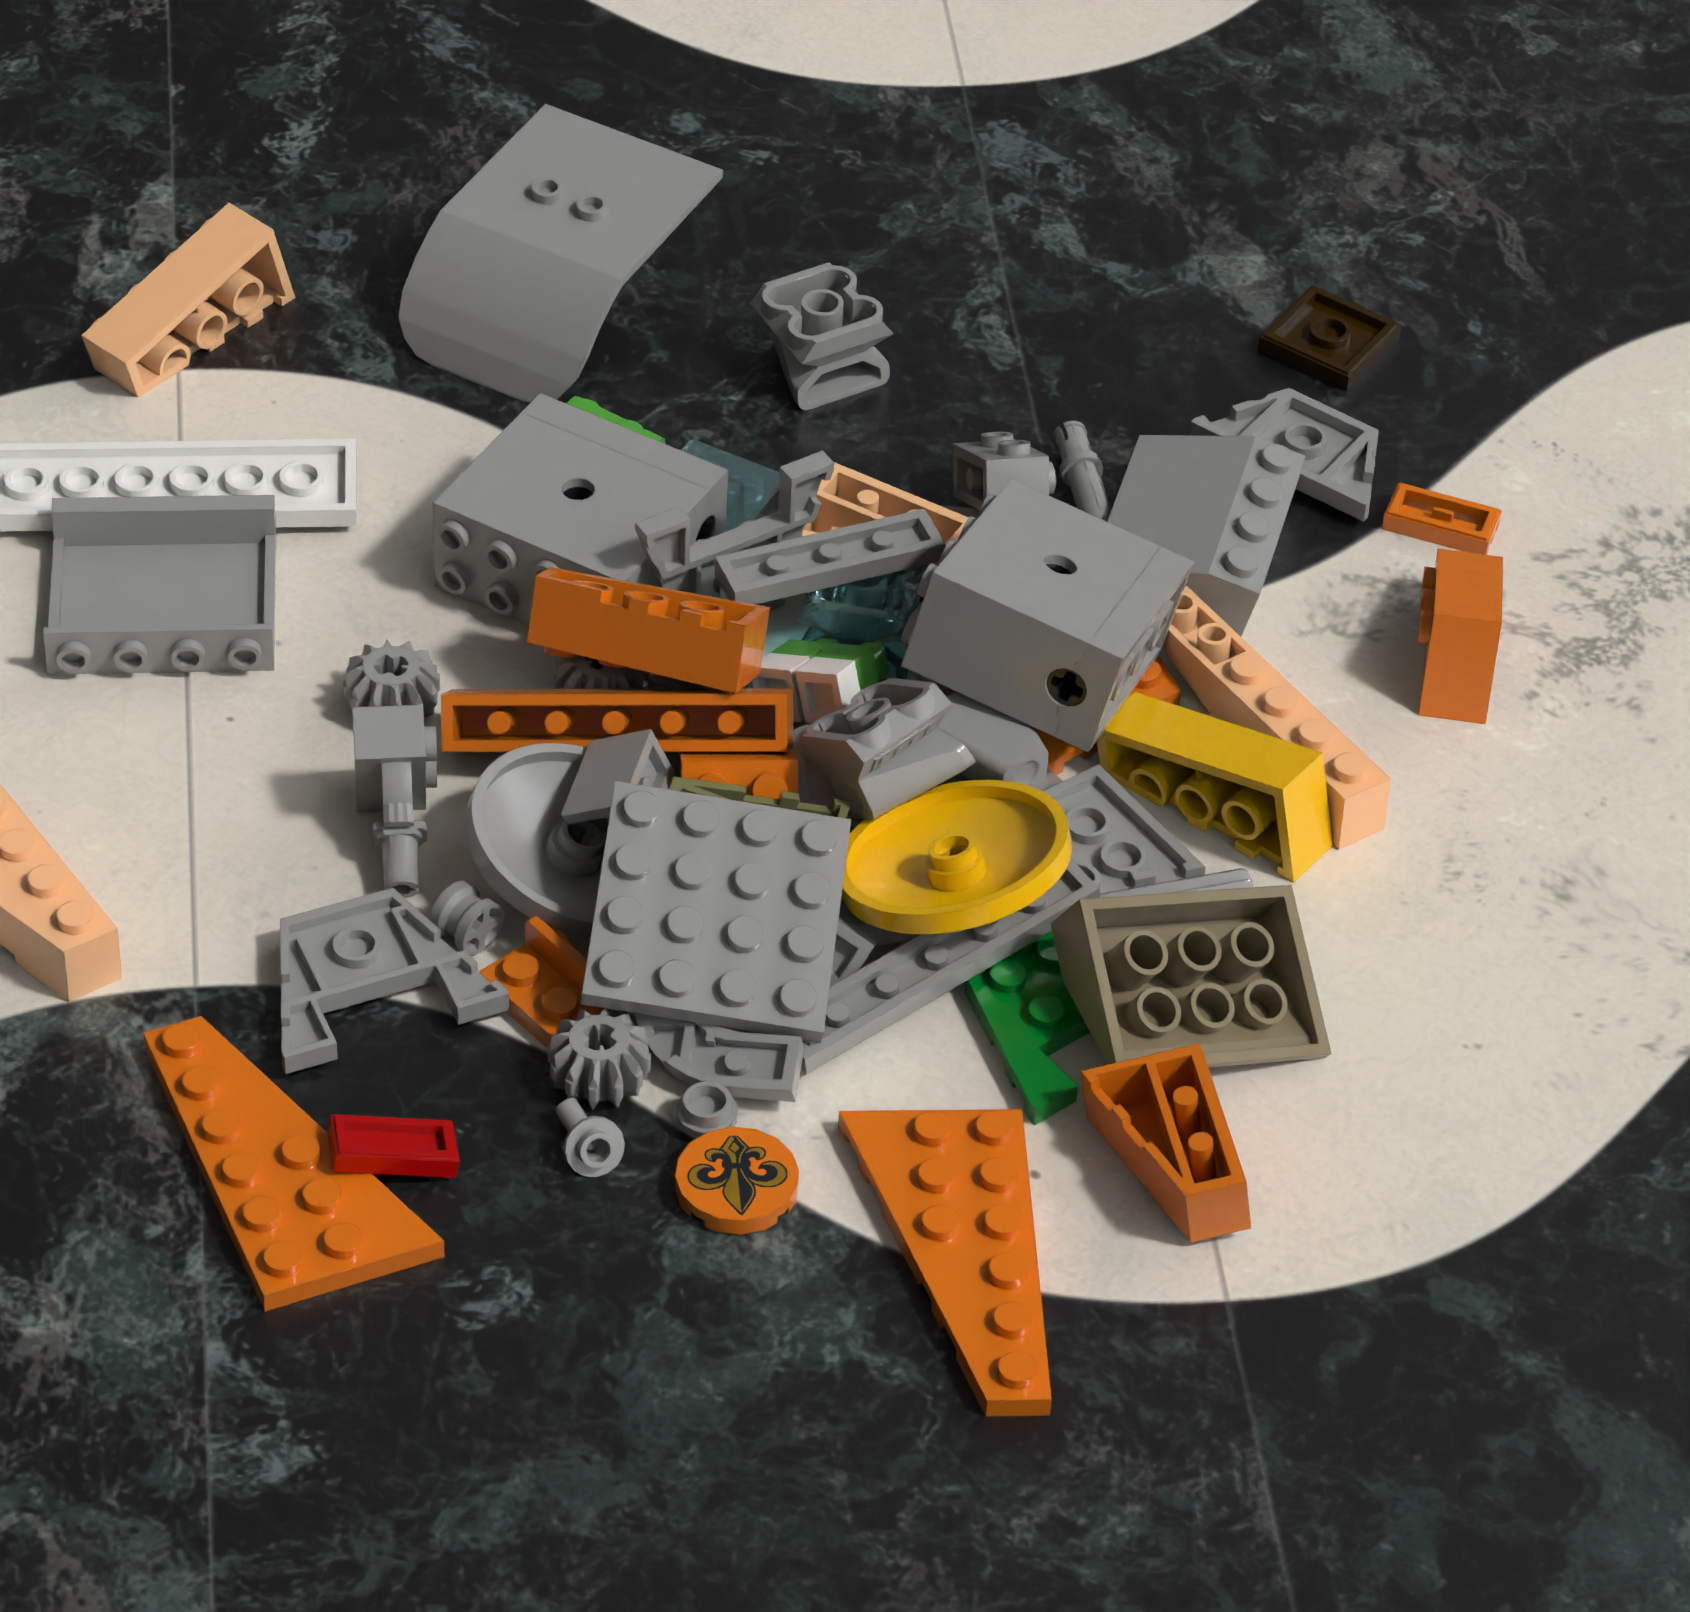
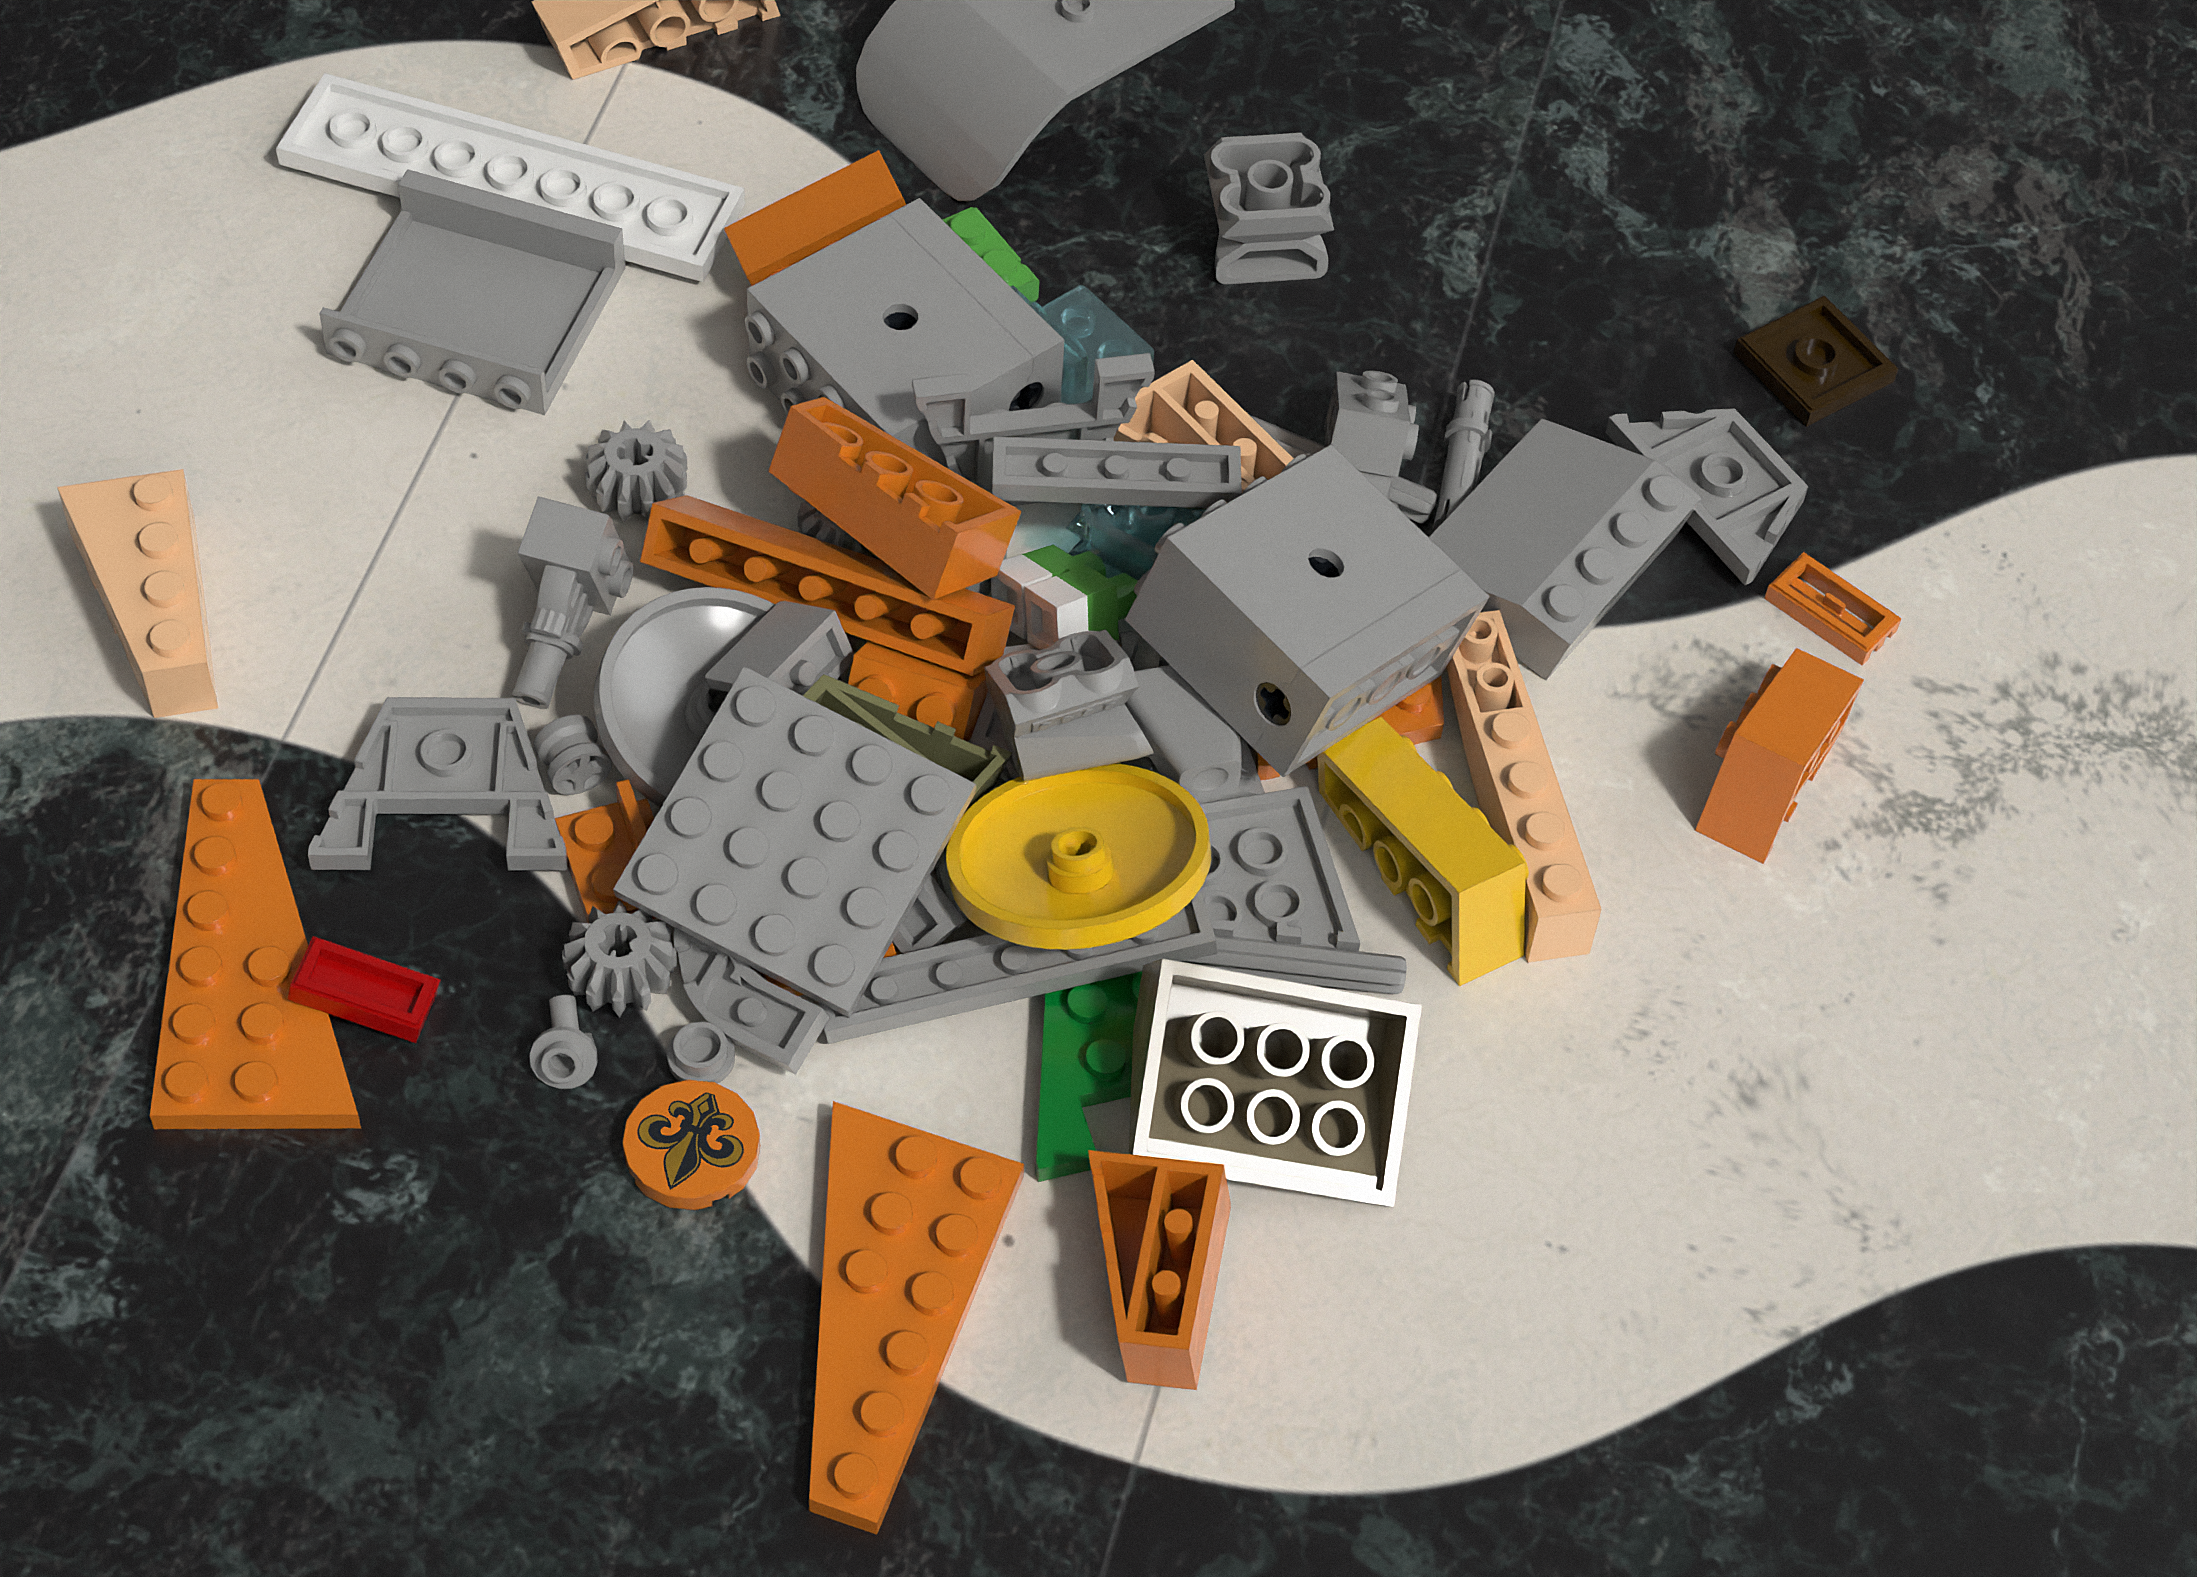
camera: 20 degrees right, 10 degrees up
(442, 447) = (814, 217): none -> orange wedge

